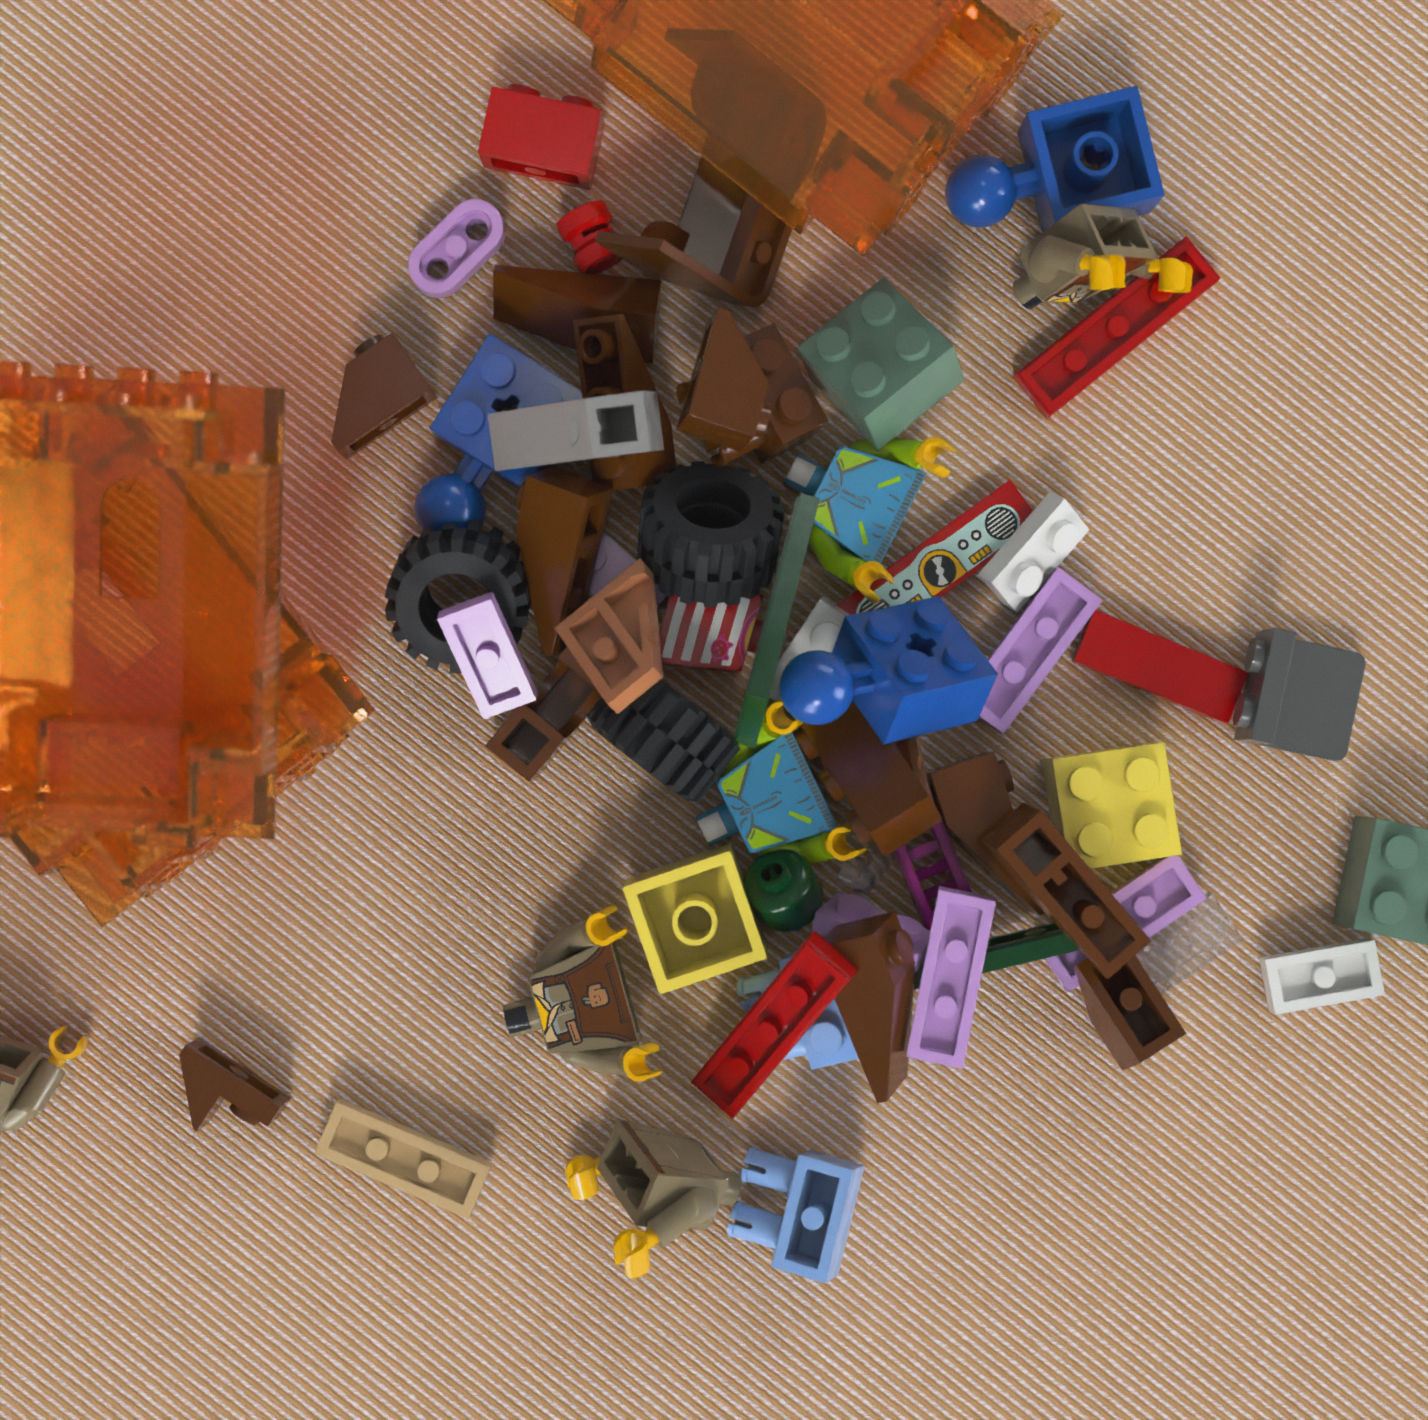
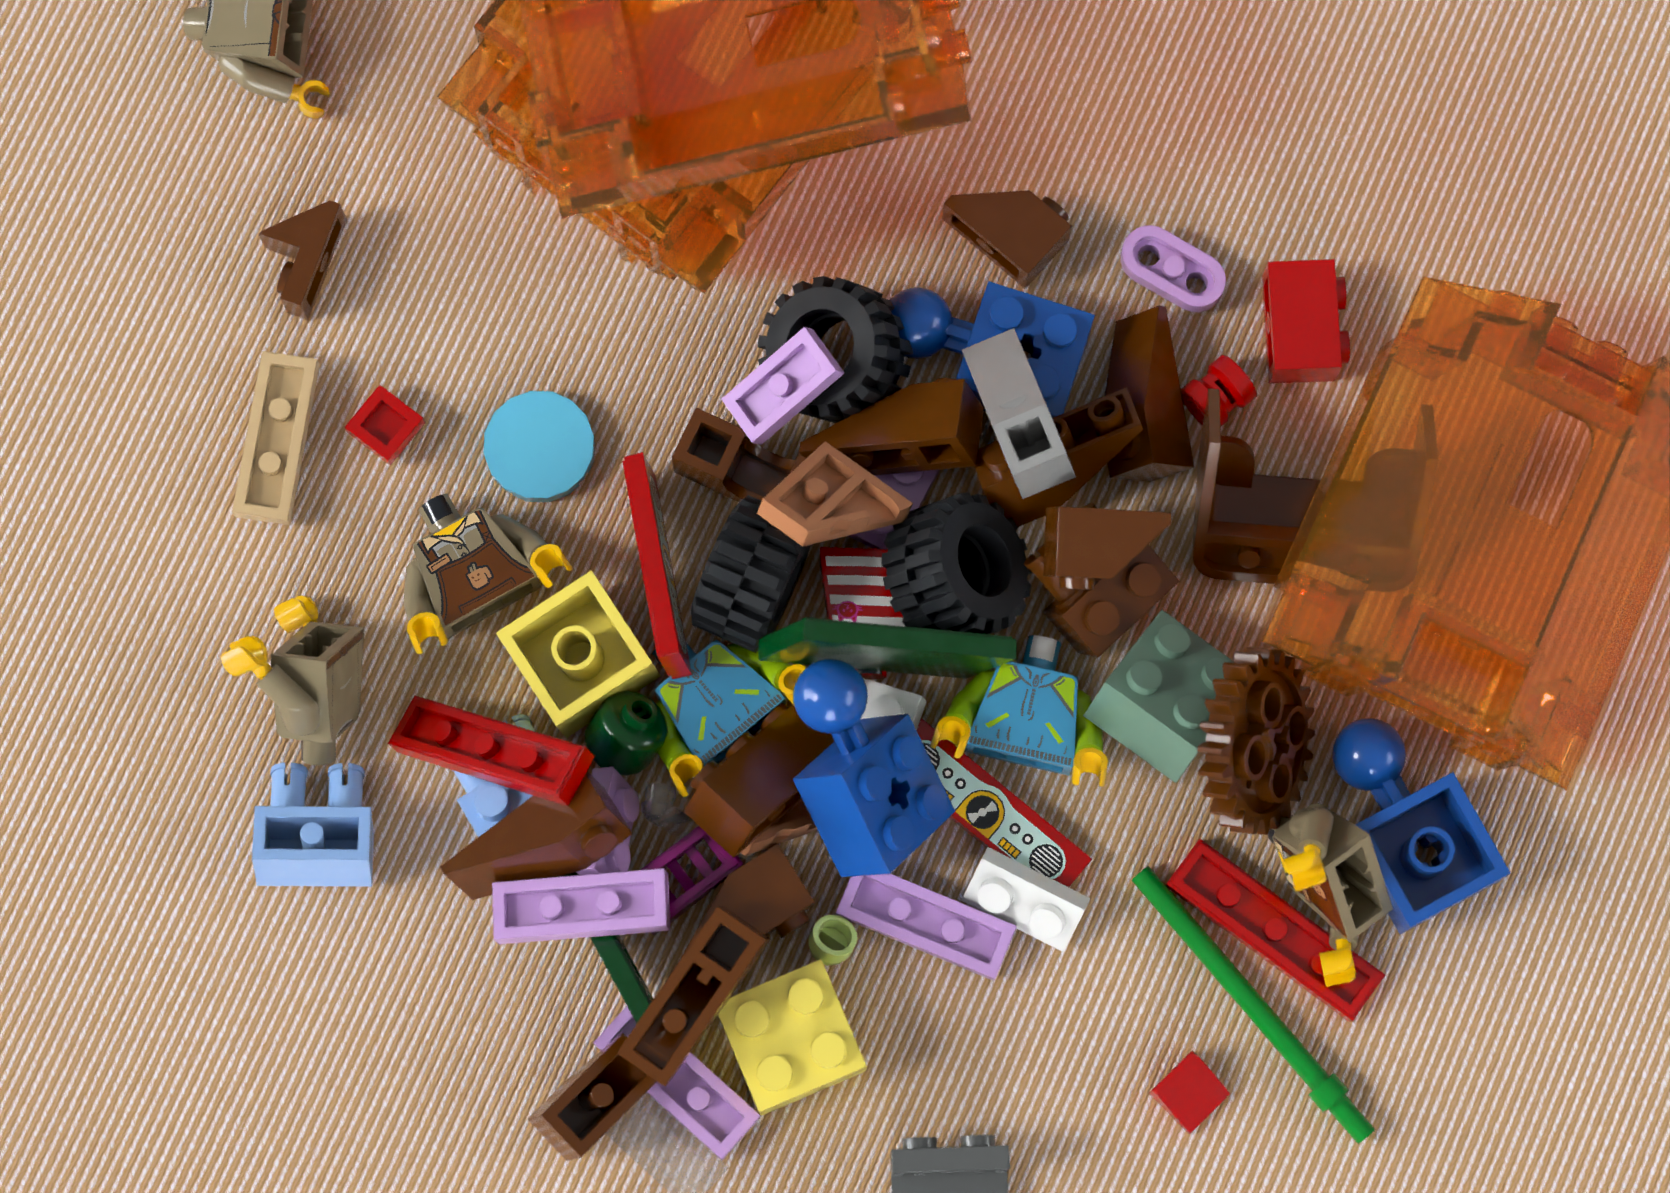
camera: 80 degrees right, 10 degrees down
(417, 1049) = (385, 425): none -> red plate
(475, 904) = (539, 446): none -> medium azure tile
(630, 822) = (656, 566): none -> red tile
(951, 290) = (1256, 740): none -> reddish brown gear
(1020, 736) = (832, 939): none -> yellowish green hinge
(1159, 667) = (944, 1056): red tile -> none
(1246, 448) = (1190, 1092): none -> red slope
(1275, 322) = (1327, 1091): none -> green bar

